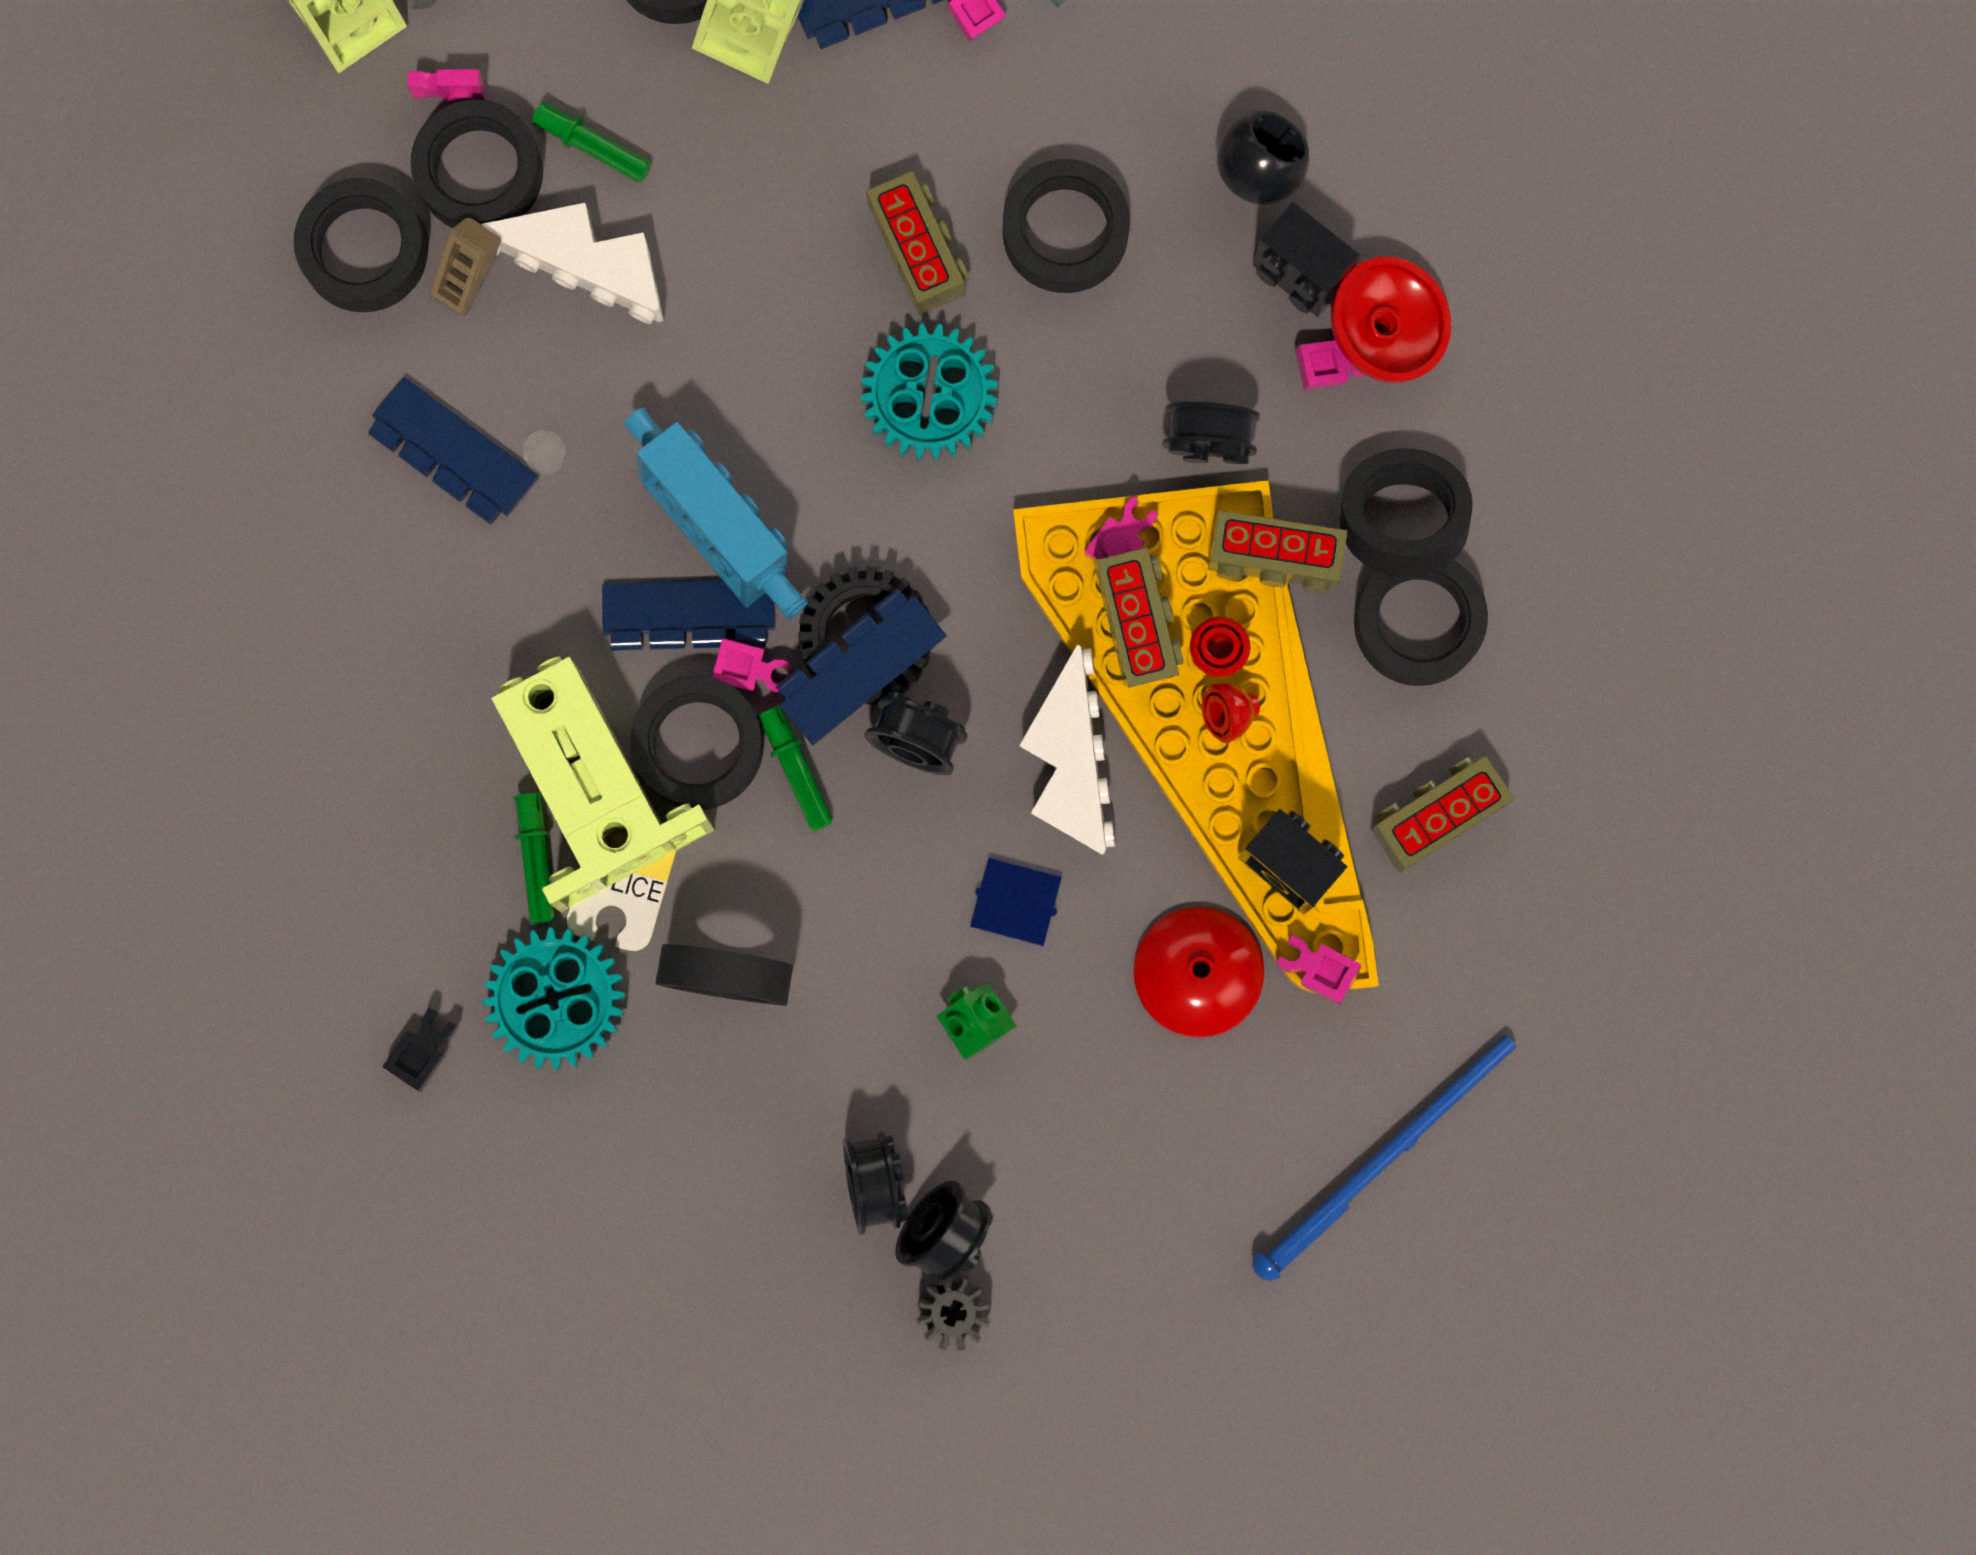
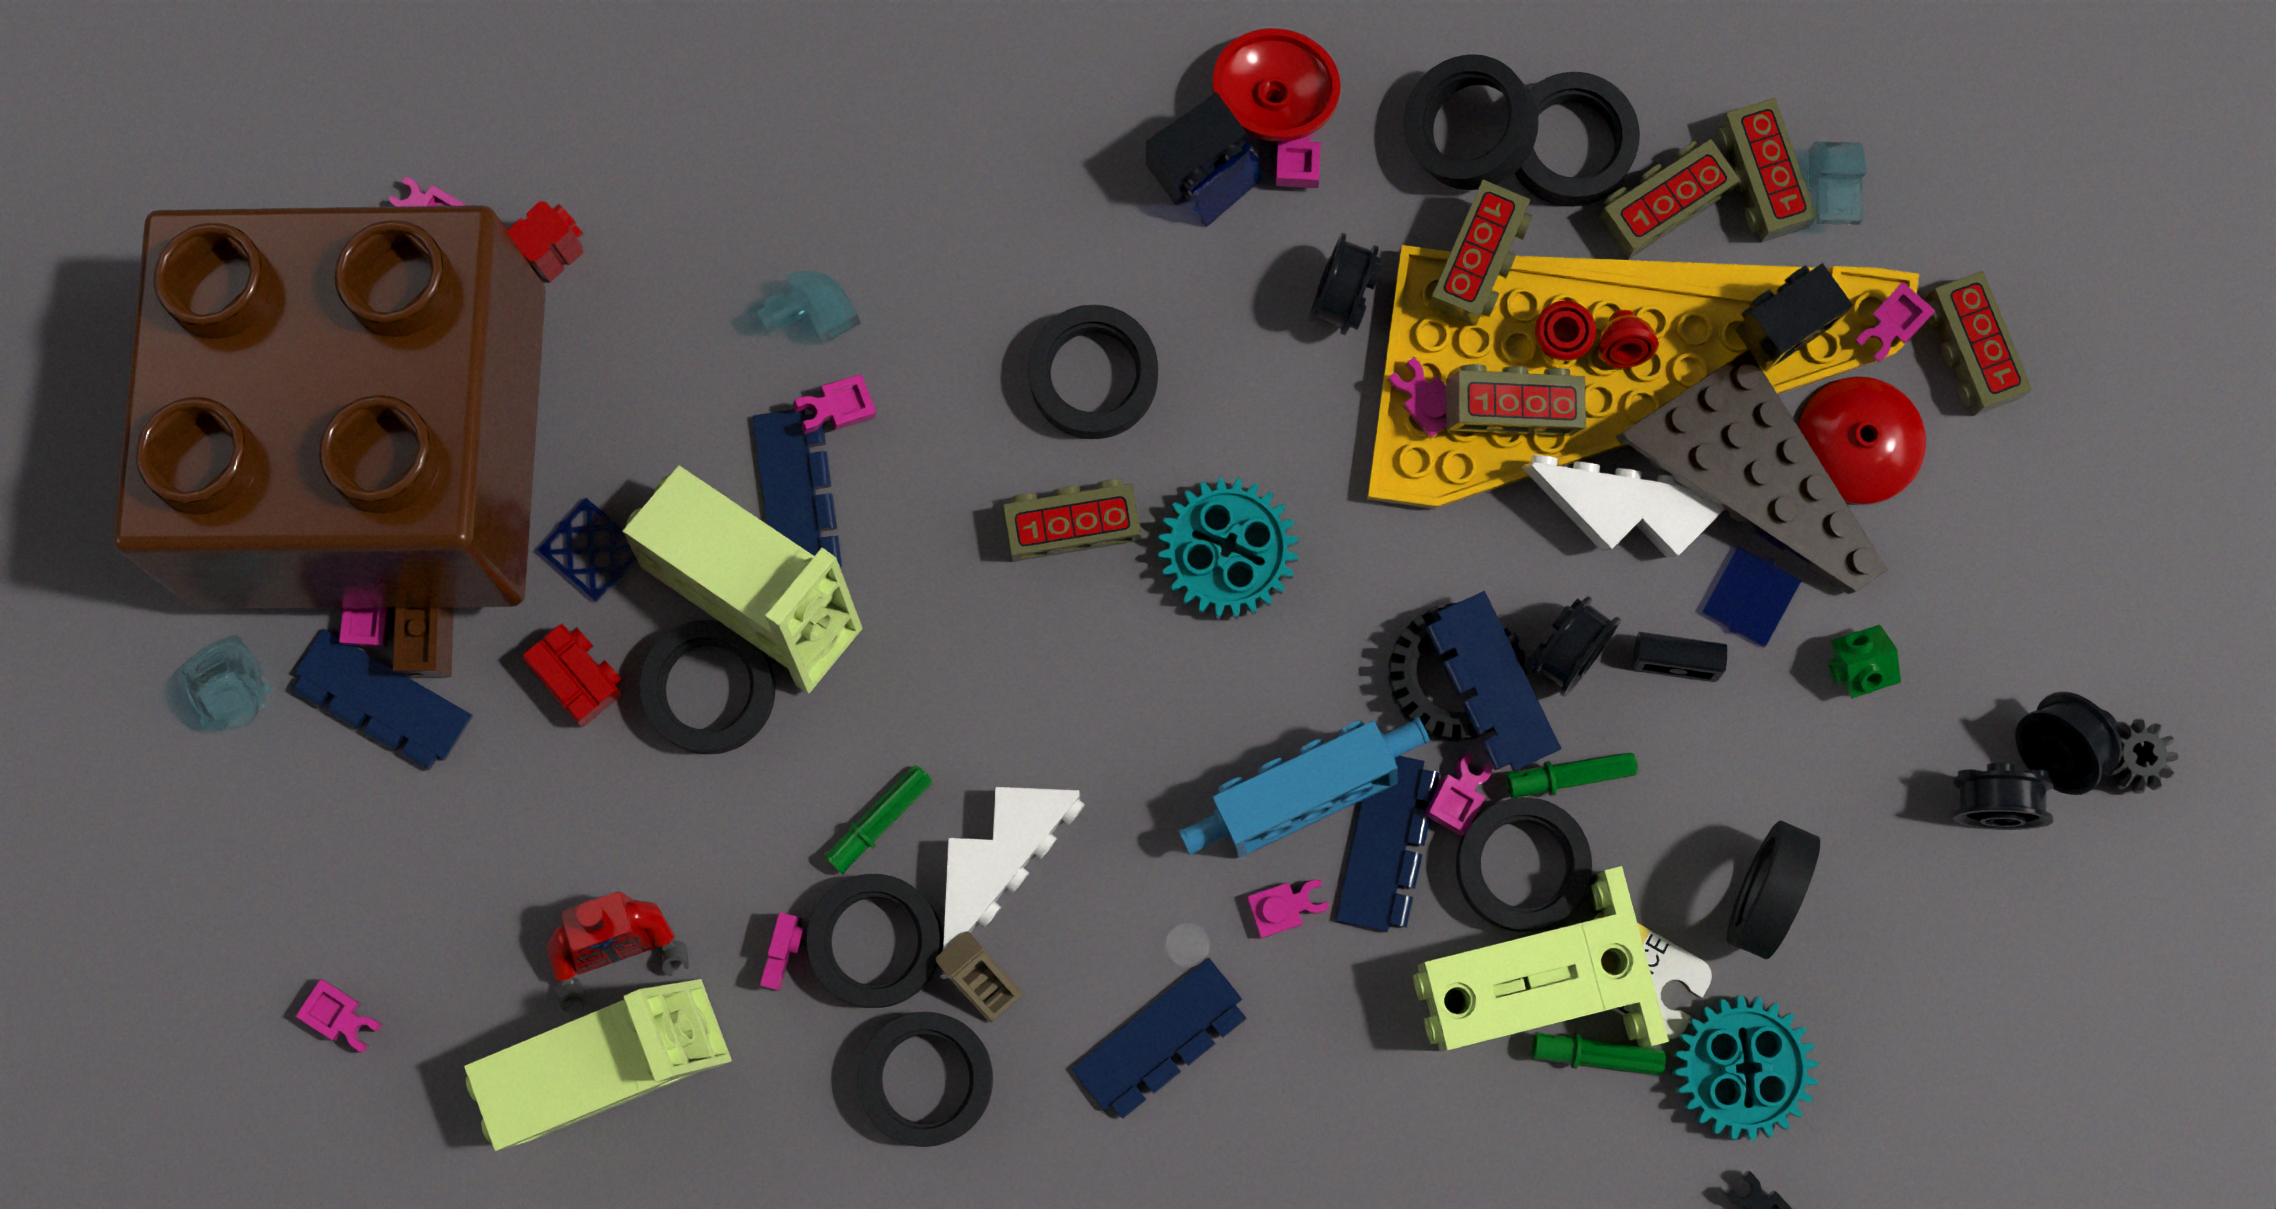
camera: 75 degrees left, 0 degrees up
(601, 529) = (1279, 908): none -> dark pink plate
(937, 843) = (1679, 657): none -> black brick
(1145, 858) = (1746, 453): none -> dark brown wing
(1263, 157) = (1082, 161): black wheel -> none
(1271, 1264) = (2158, 449): blue bar -> none
(1279, 299) = (1226, 185): none -> clear blue piece
(1323, 1059) = (1977, 344): none -> olive brick
(1387, 724) = (1668, 197): none -> olive brick
(1446, 881) = (1837, 178): none -> clear light blue brick

